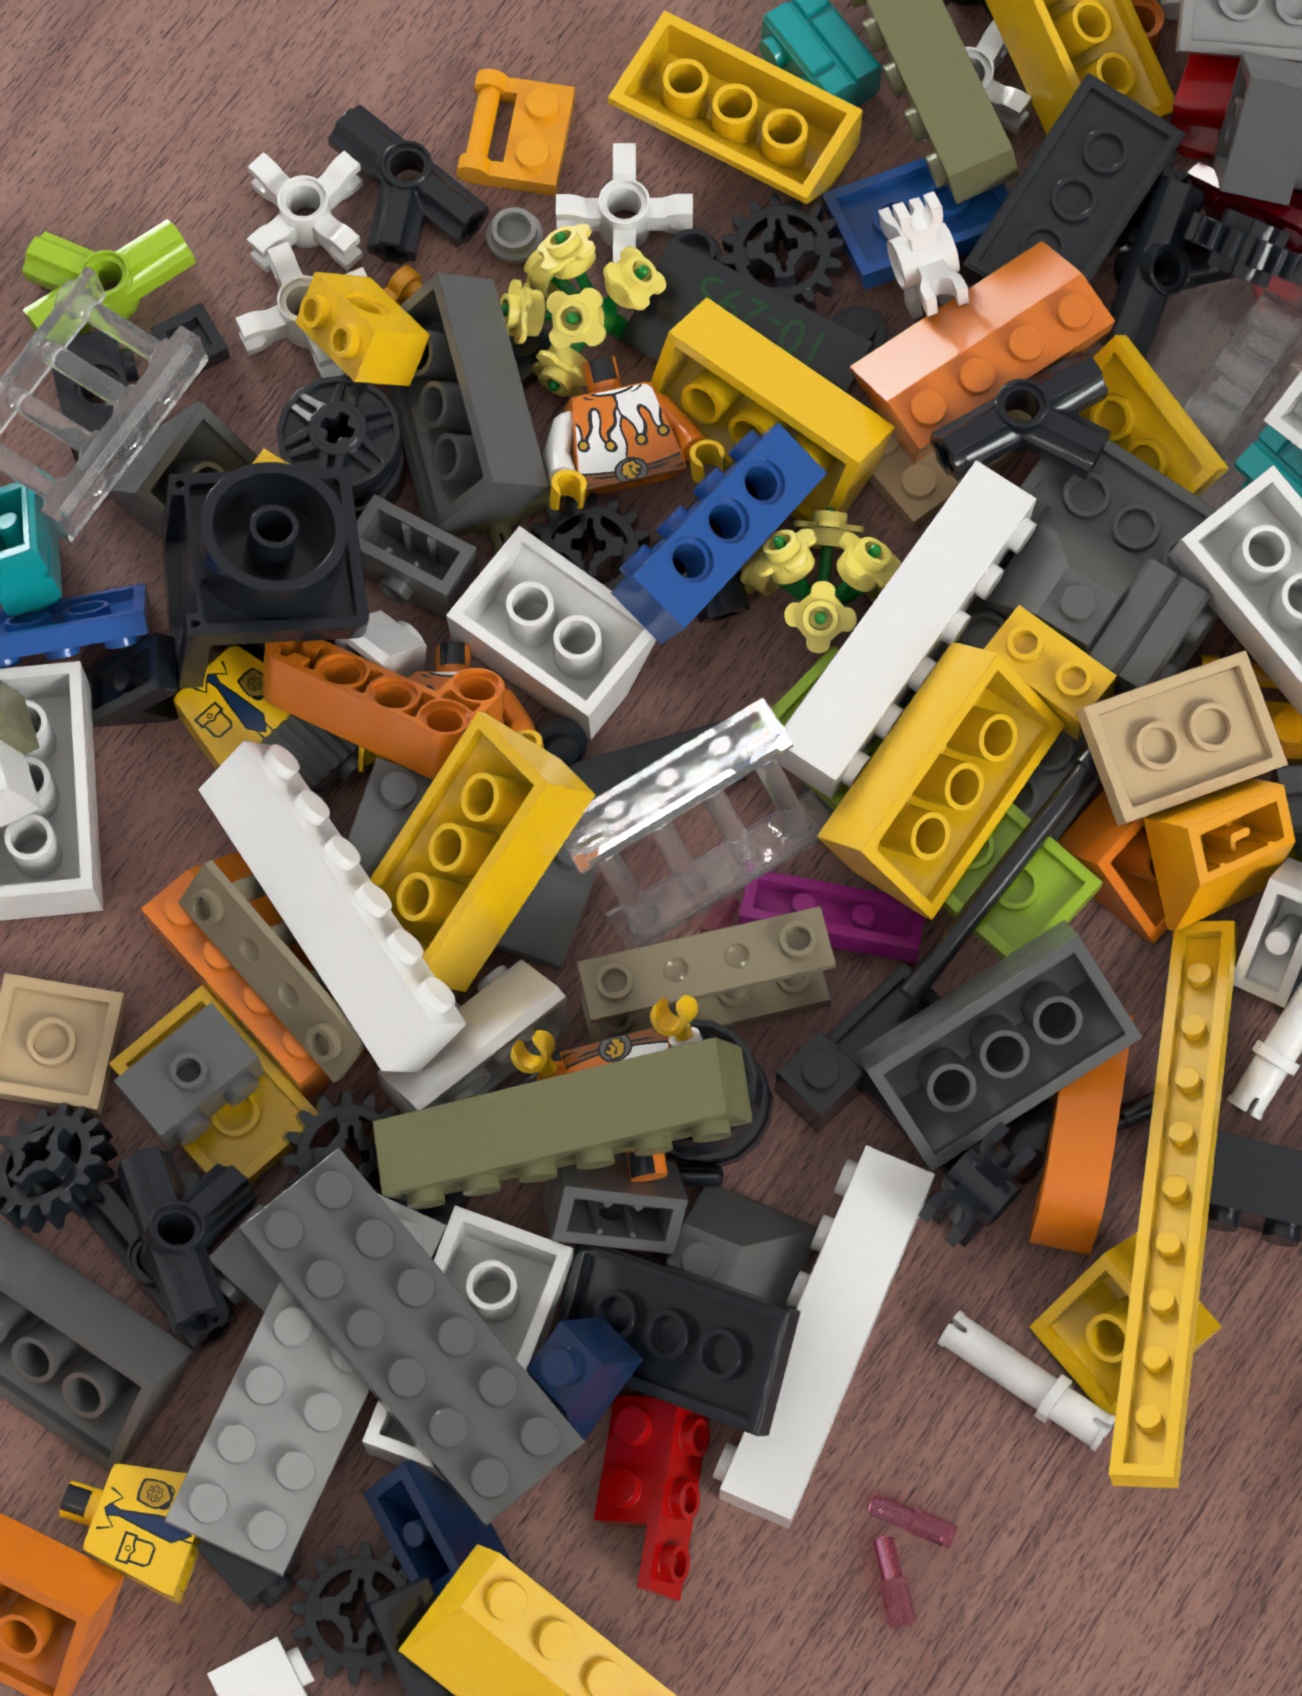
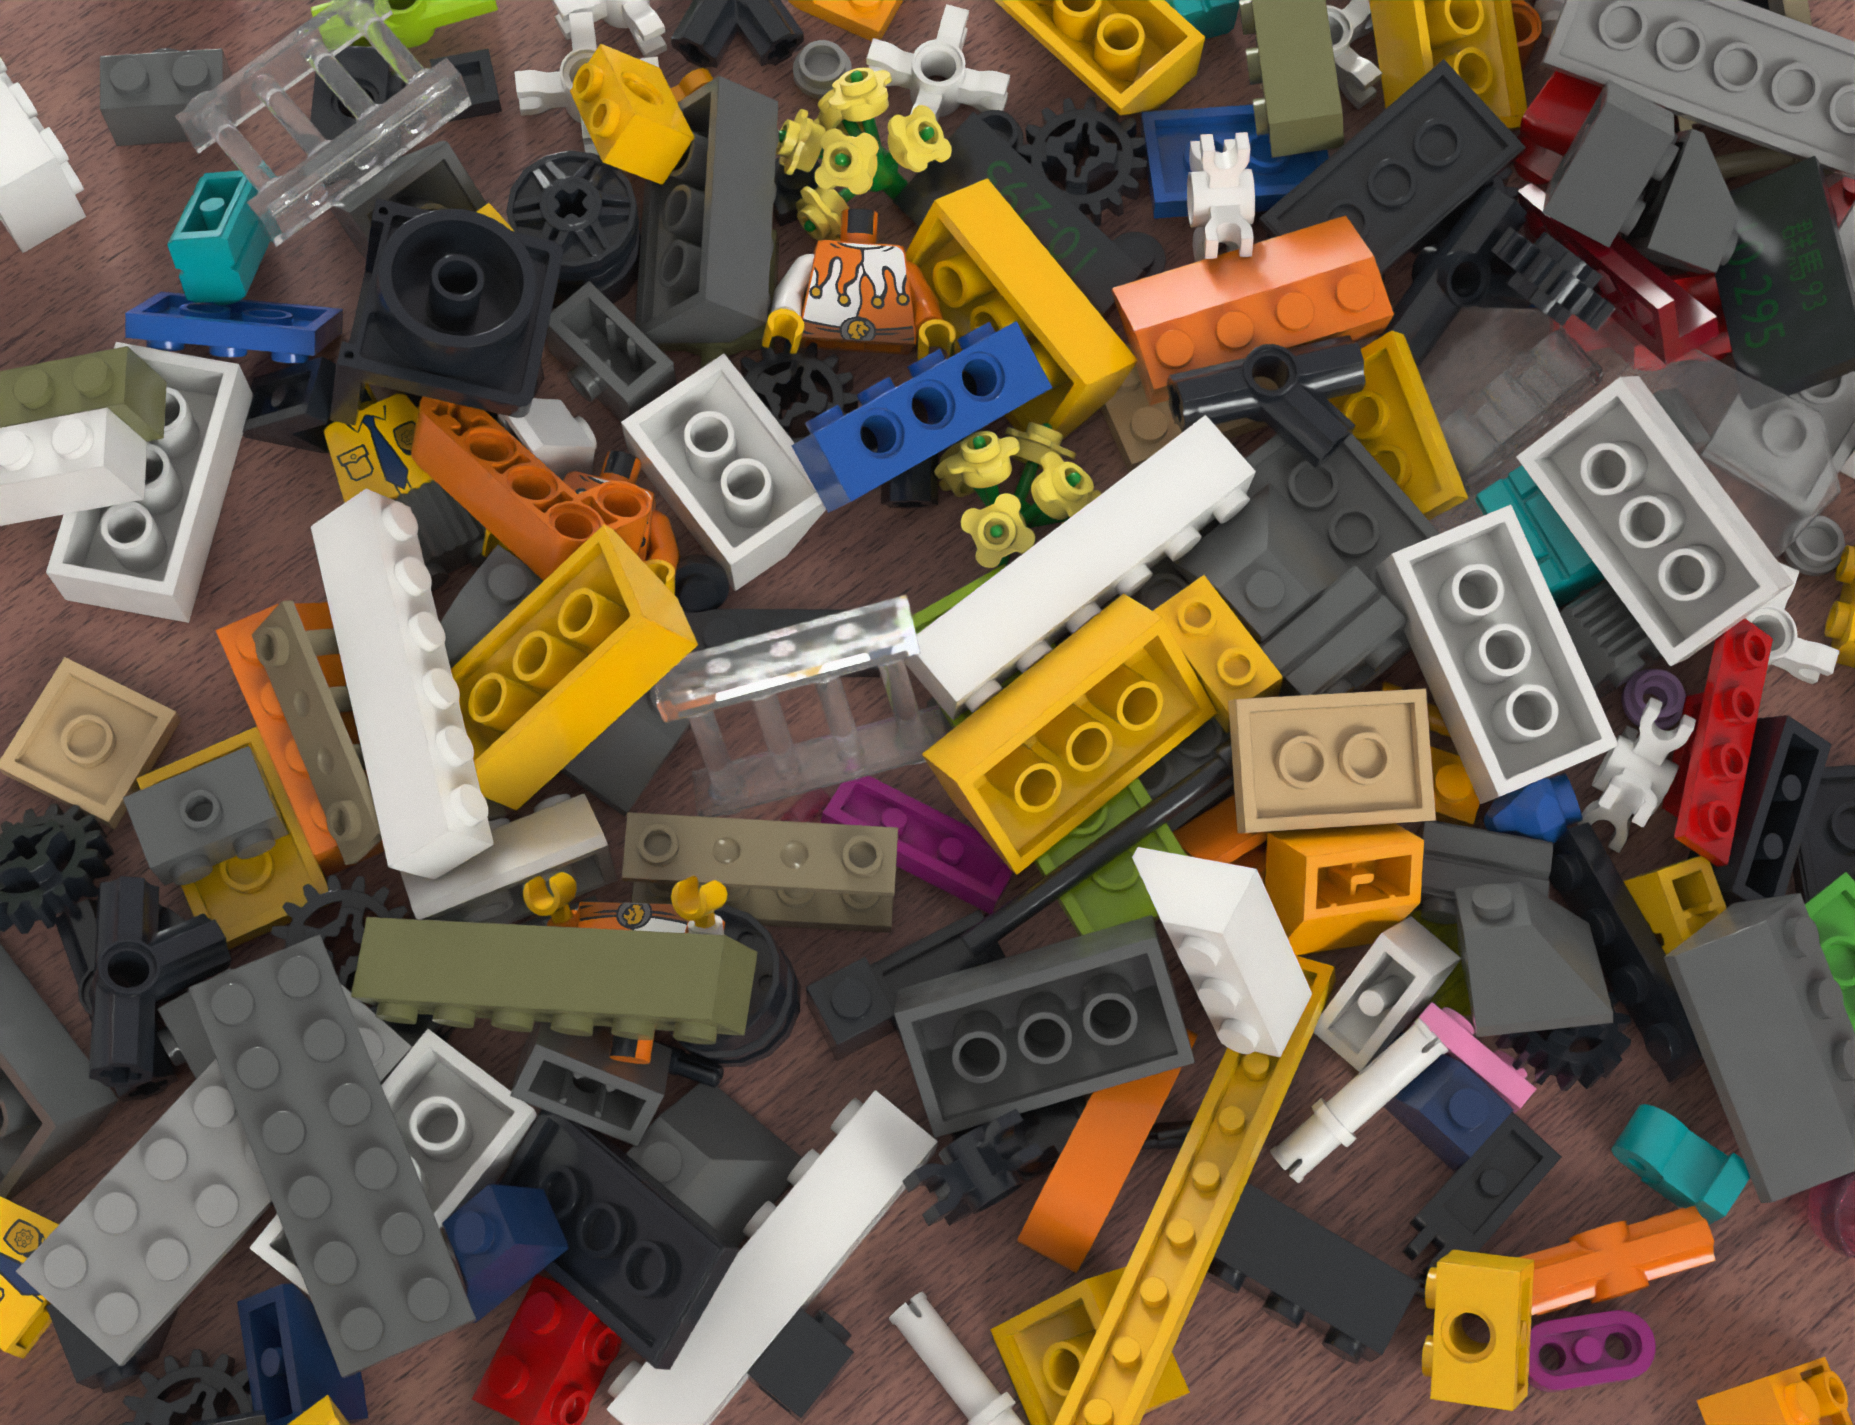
camera: 10 degrees right, 0 degrees up
(875, 1402) = (803, 1362): none -> black brick
(1140, 928) = (1229, 947): none -> white slope

